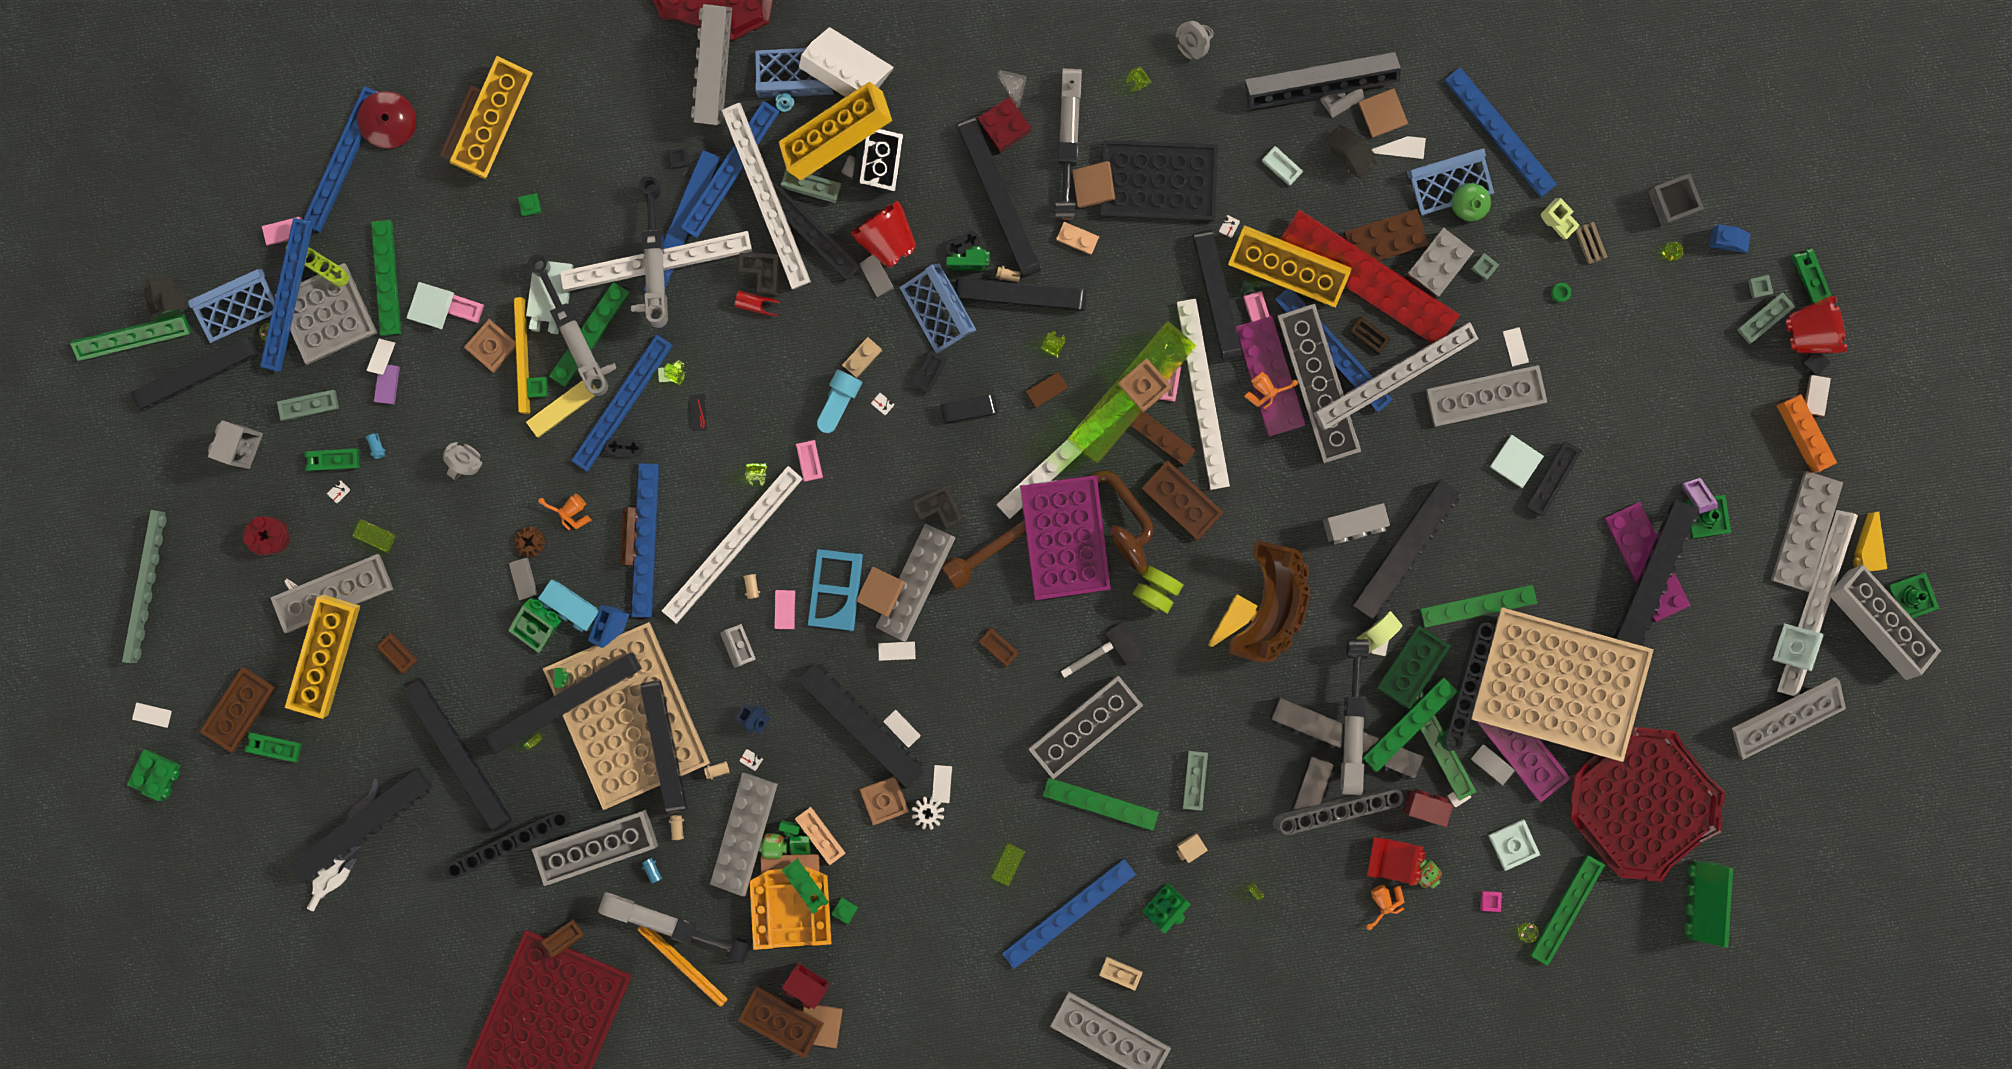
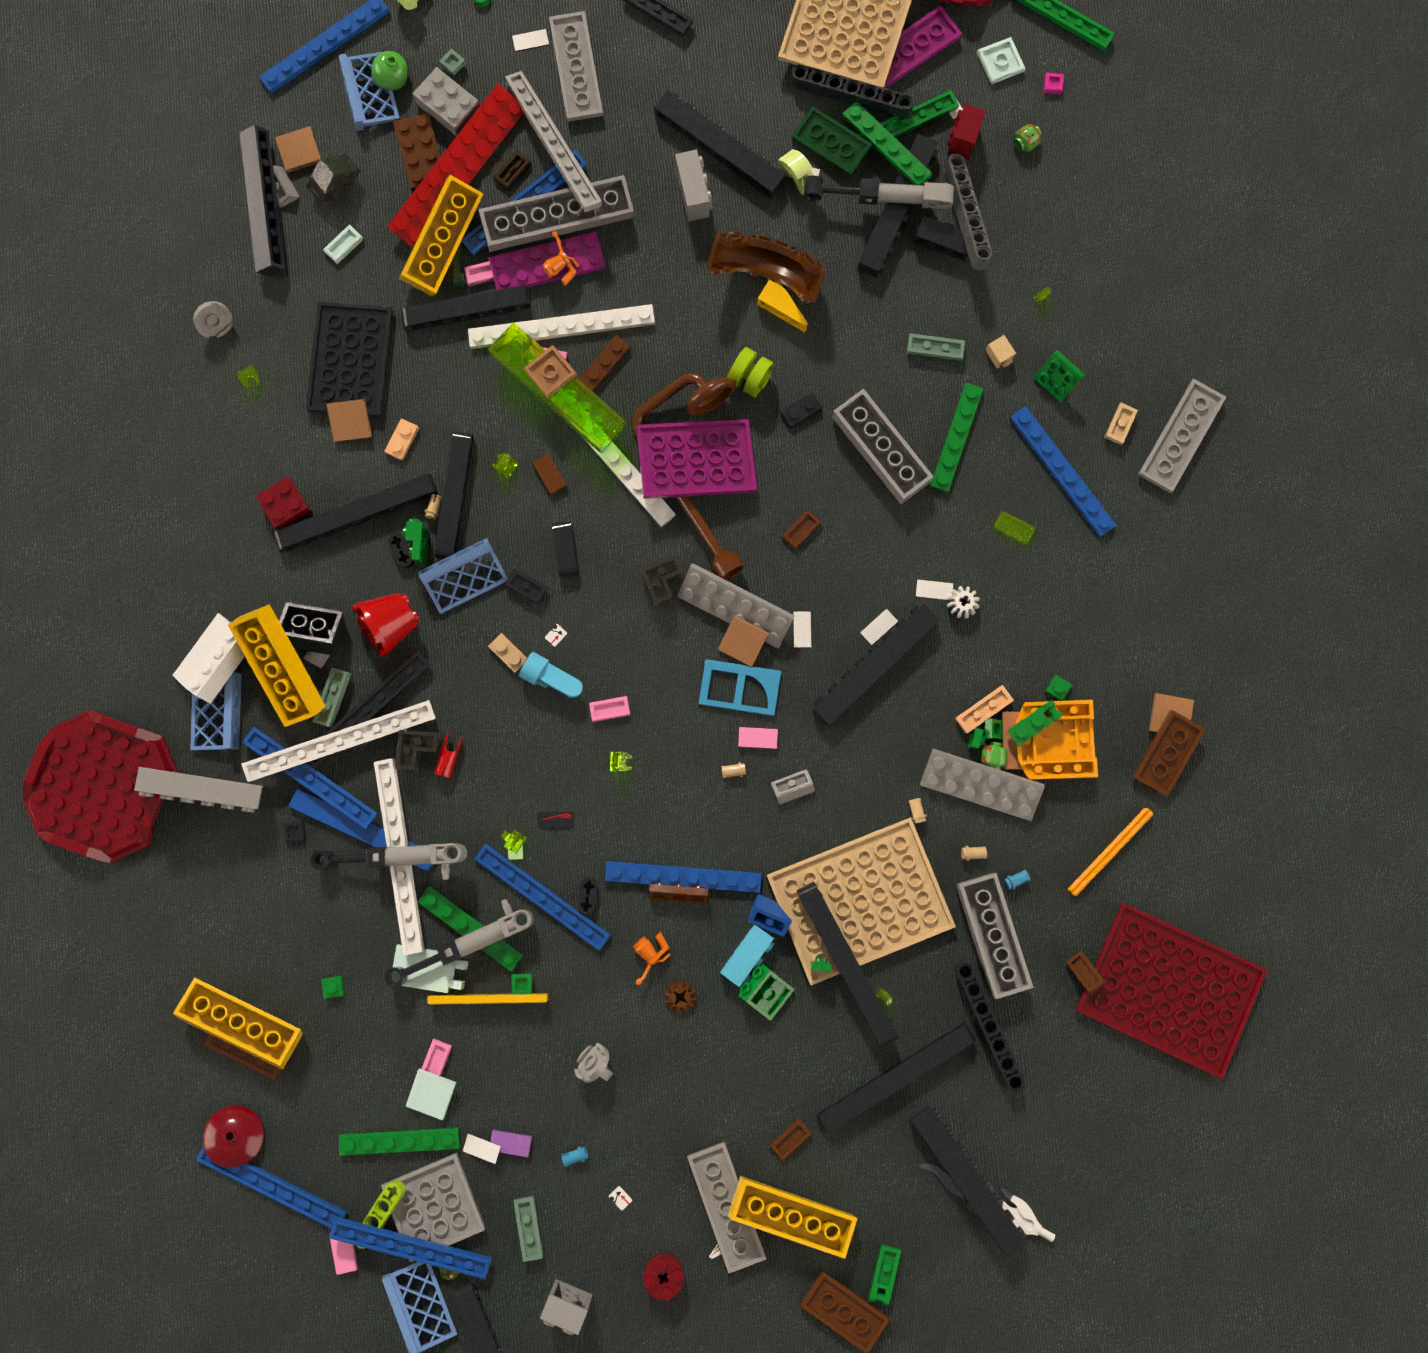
camera: 90 degrees left, 5 degrees down
(332, 459) = (586, 1203): green plate -> none
(374, 535) = (667, 1160): clear neon green tile -> none
(491, 345) = (476, 1031): medium nougat tile -> none
(523, 578) = (718, 1004): light grey slope -> none
(560, 409) = (545, 960): light yellow tile -> none
(663, 746) = (893, 861): black beam -> none
(678, 929) = (1076, 852): piece -> none
(732, 544) = (691, 788): white plate -> none
(751, 760) = (907, 777): white sticker -> none
(755, 721) = (866, 771): dark blue brick -> none
(784, 106) = (250, 721): medium azure plate -> none
(805, 986) = (1134, 726): dark red brick -> none
(876, 276) = (427, 635): light grey slope -> none
(884, 800) = (949, 645): medium nougat tile -> none
(1014, 85) = (244, 495): clear slope -> none
(1068, 138) = (311, 443): piece -> none
(1087, 659) = (816, 446): light grey bar -> none
(1182, 500) = (664, 348): reddish brown plate -> none
(1229, 226) = (399, 296): white sticker -> none
(1382, 898) = (1051, 178): orange piece -> none
(1396, 860) = (1016, 162): red panel -> none
(1405, 147) = (333, 130): white sticker -> none
(1478, 606) = (775, 83): green plate -> none
(1493, 764) = (925, 75): light grey slope -> none
(1516, 461) = (639, 43): light aqua tile -> none
(1528, 932) = (1083, 51): clear neon green tile -> none

